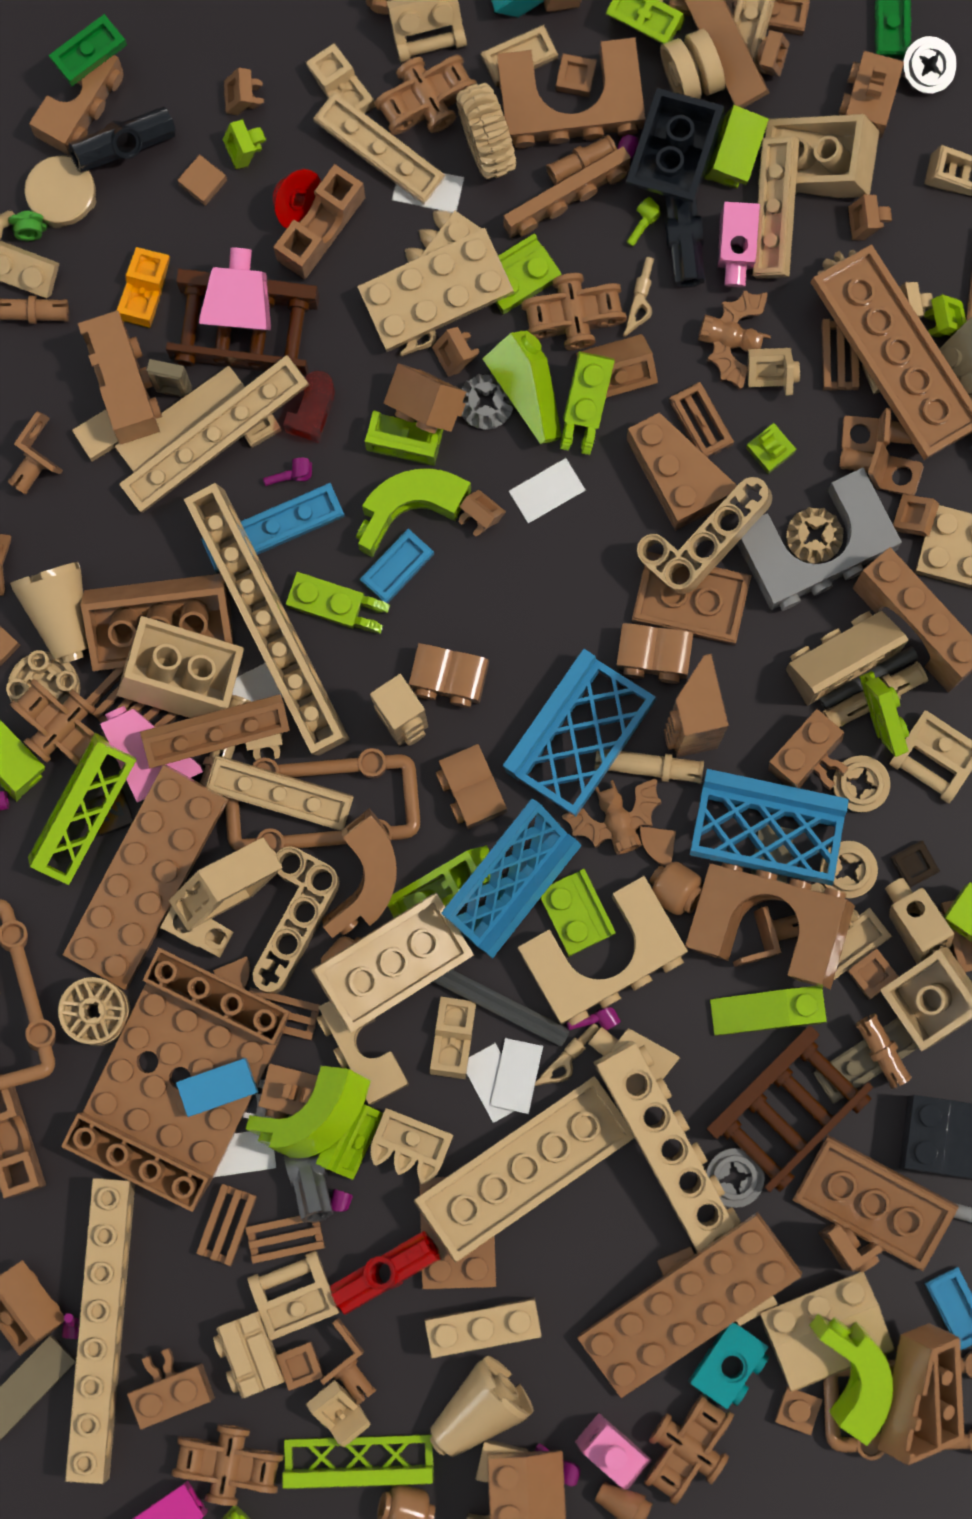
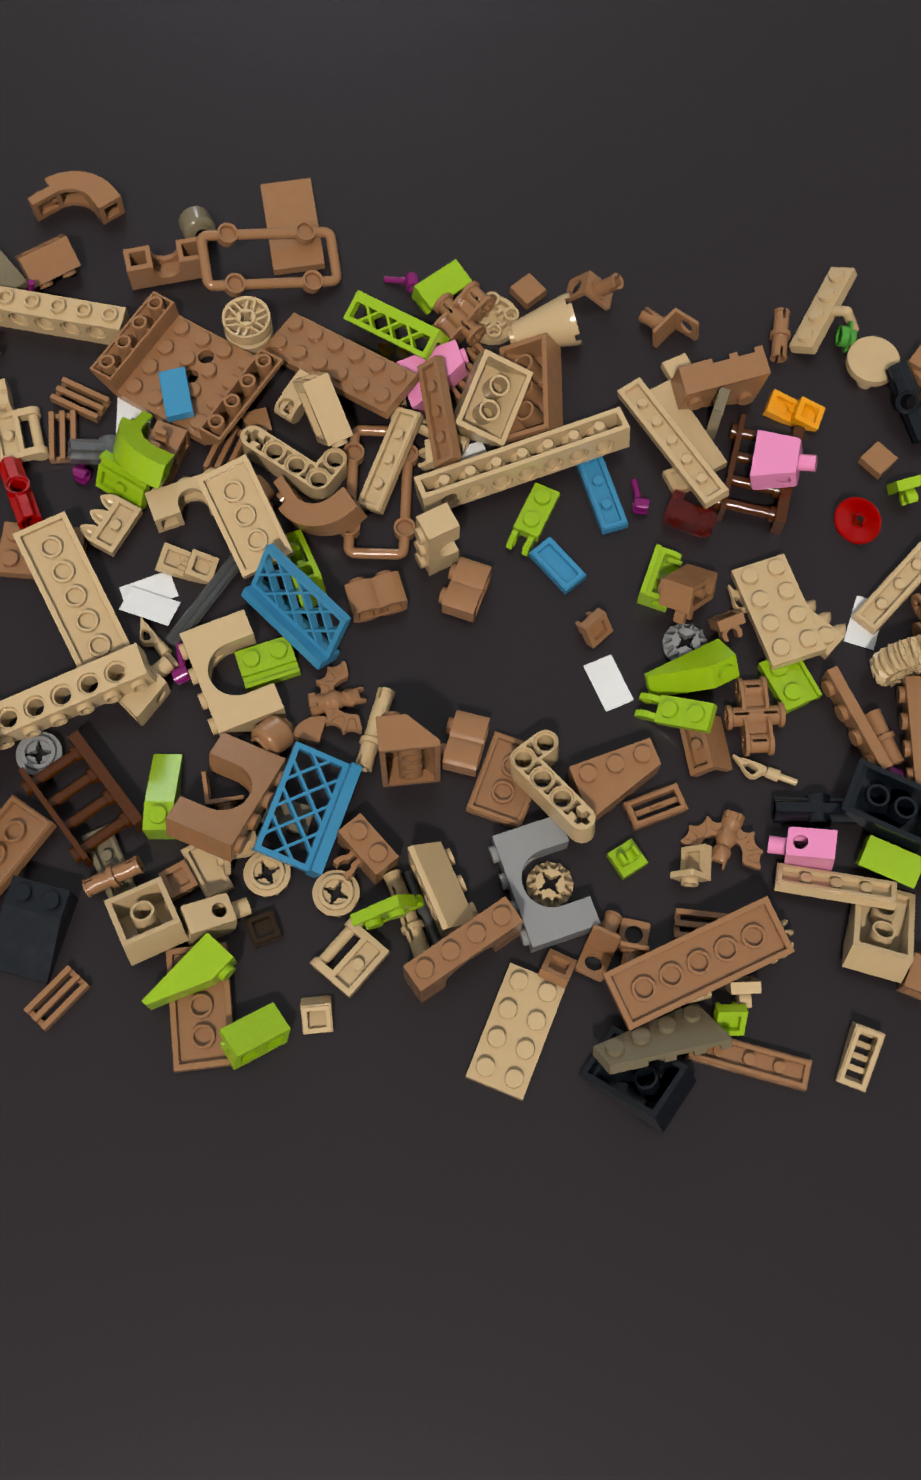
camera: 90 degrees right, 10 degrees down
(332, 208) = (820, 522): medium nougat arch -> none
(408, 491) = (612, 568): lime arch -> none
(550, 722) = (420, 657): dark azure fence -> none
(650, 212) = (835, 788): lime hand -> none
(867, 217) = (822, 964): medium nougat tile -> none

